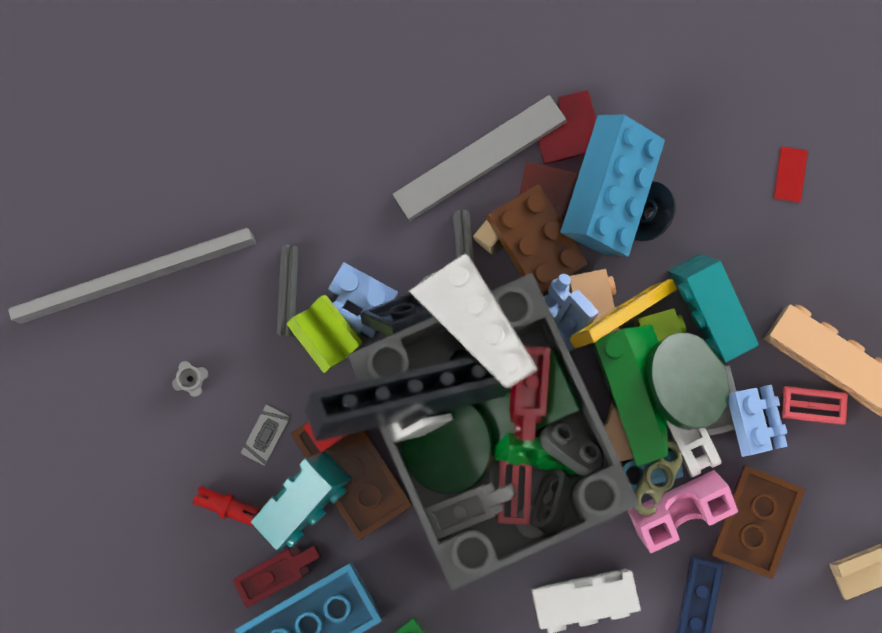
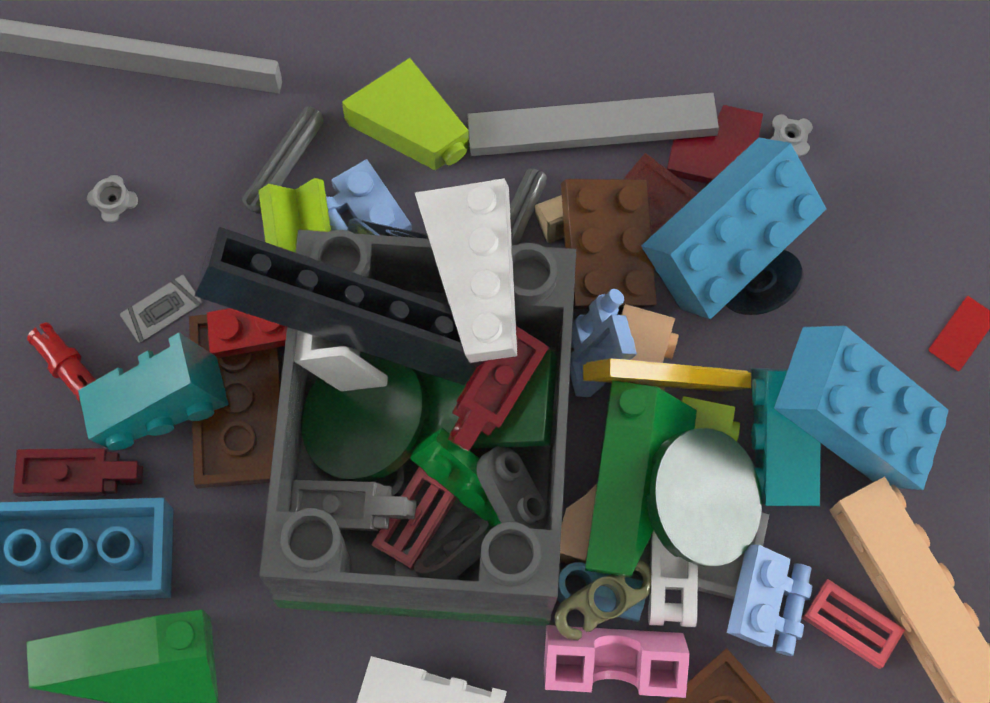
camera: 20 degrees right, 10 degrees down
(356, 217) = (409, 117): none -> lime slope
(609, 103) = (799, 128): none -> light grey plate
(757, 270) = (861, 407): none -> dark azure brick

